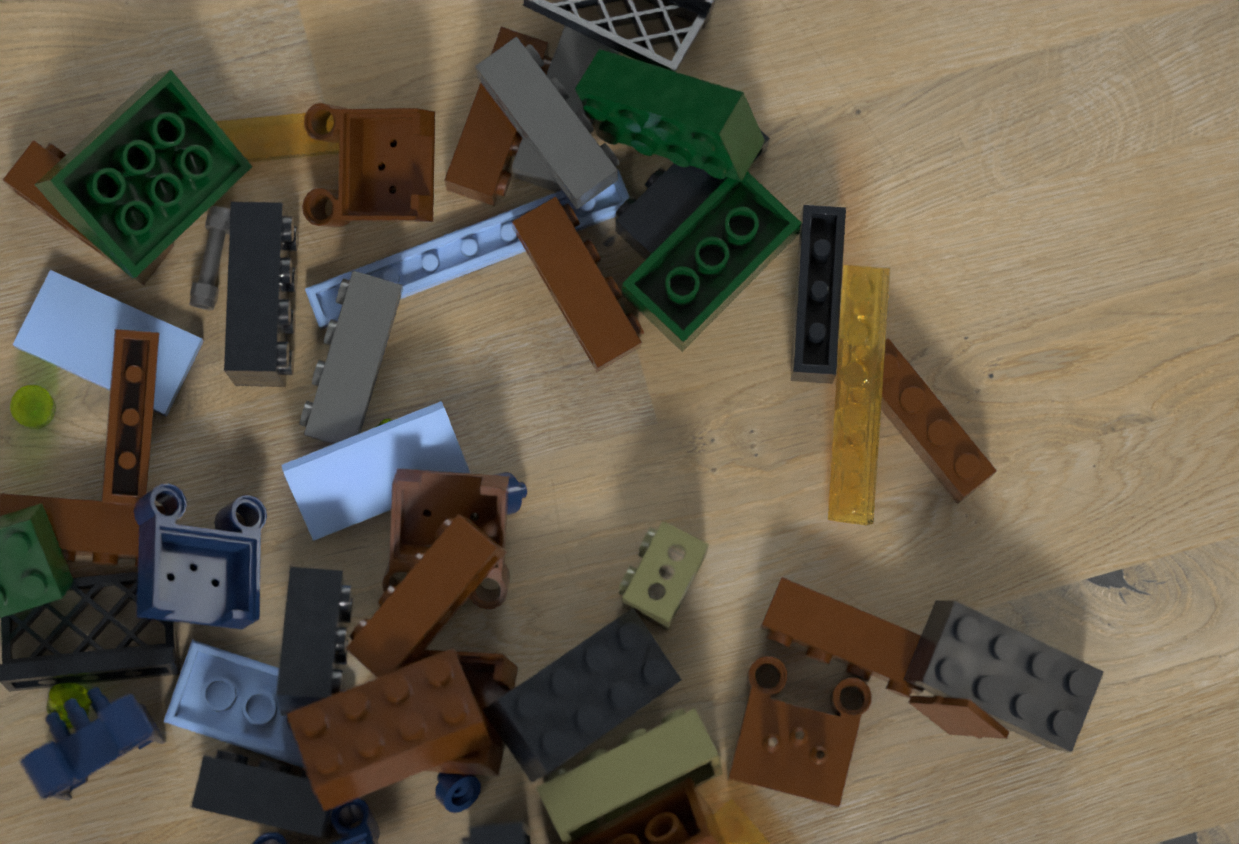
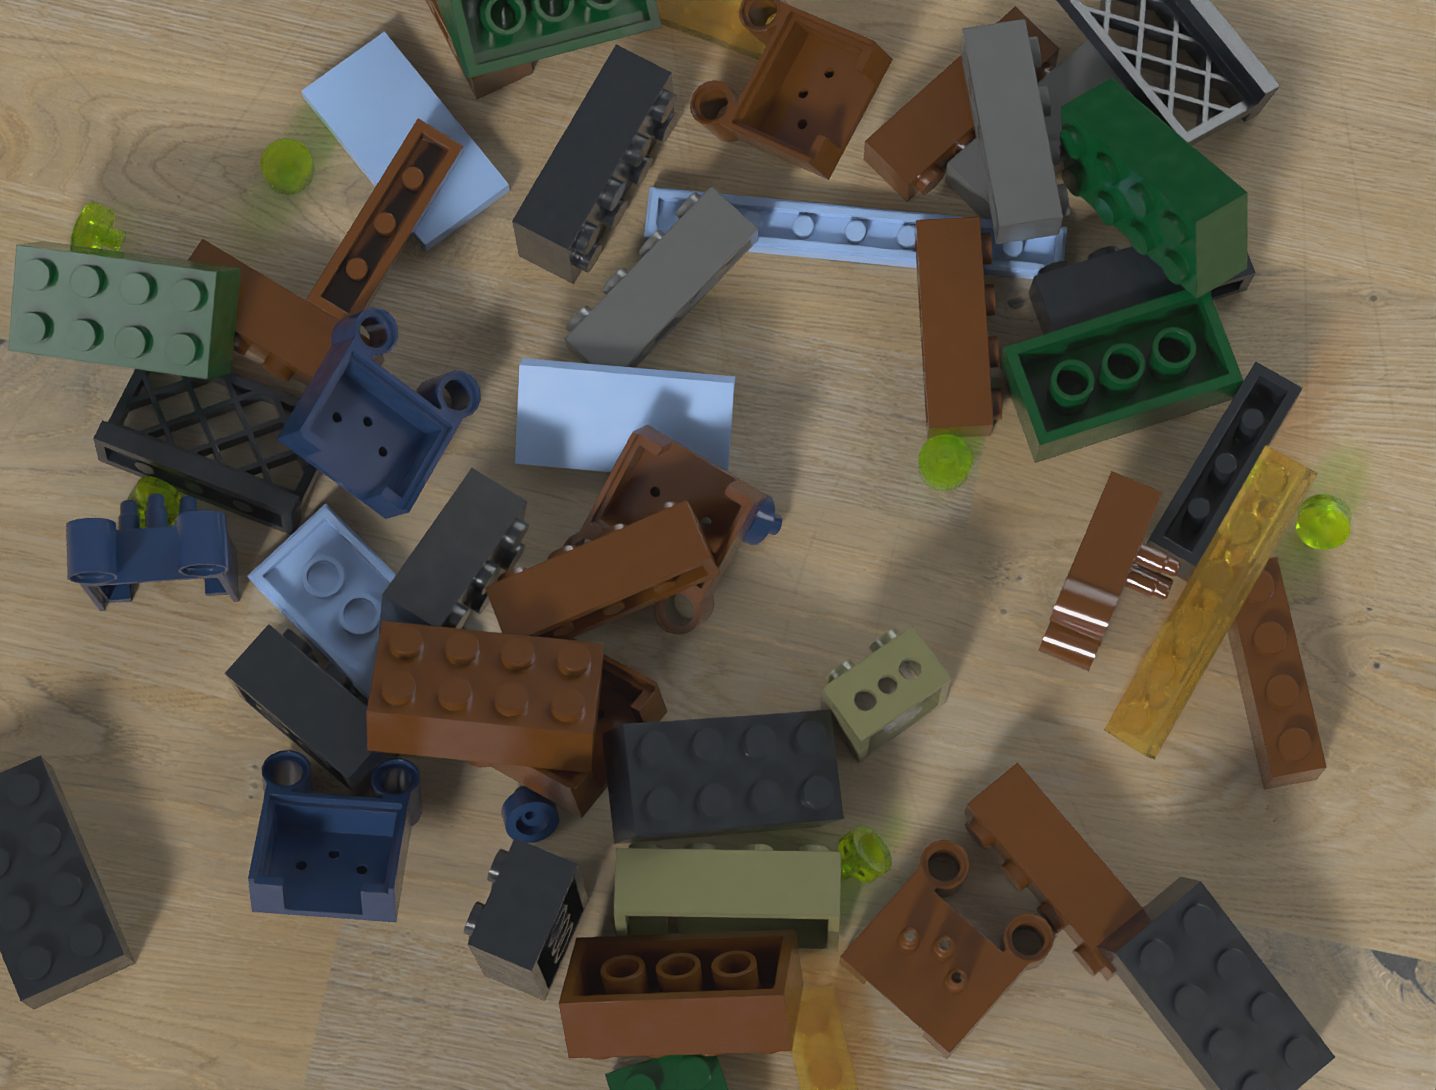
camera: 30 degrees right, 5 degrees down
(205, 293) = (538, 138): flat silver bar -> none
(622, 393) = (940, 472): none -> clear neon green tile
(706, 695) = (863, 855): none -> clear neon green tile
(773, 409) = (1105, 564): none -> reddish brown piece
(906, 293) = (1323, 521): none -> clear neon green tile
(959, 716) = (1139, 1021): reddish brown piece -> none

